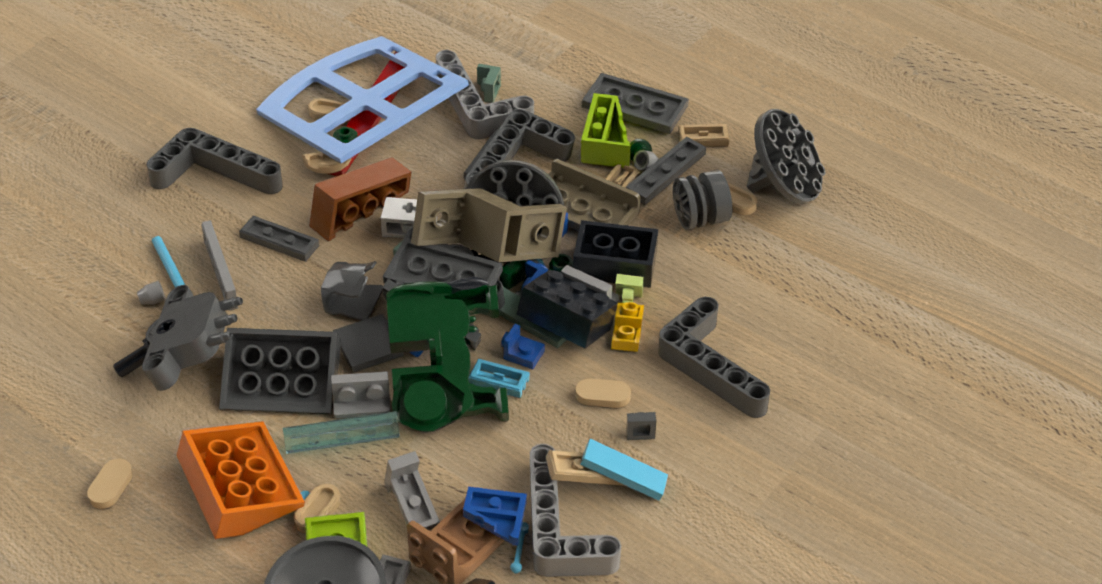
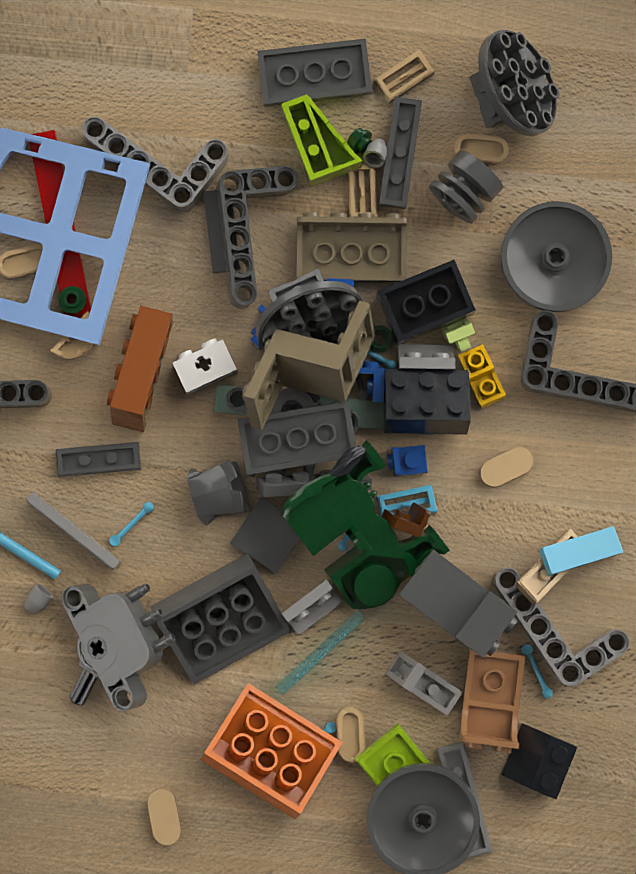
camera: 30 degrees left, 40 degrees up
(245, 291) = (115, 540): none -> medium azure hinge
(483, 370) = (410, 522): none -> reddish brown bracket
(486, 439) = (459, 604): none -> dark grey brick
(490, 80) = (158, 133): sand green bracket -> none
(496, 511) = (510, 663): blue wing -> none
(641, 425) = (562, 488): dark grey plate -> none
(746, 274) = (556, 256): none -> dark grey dish

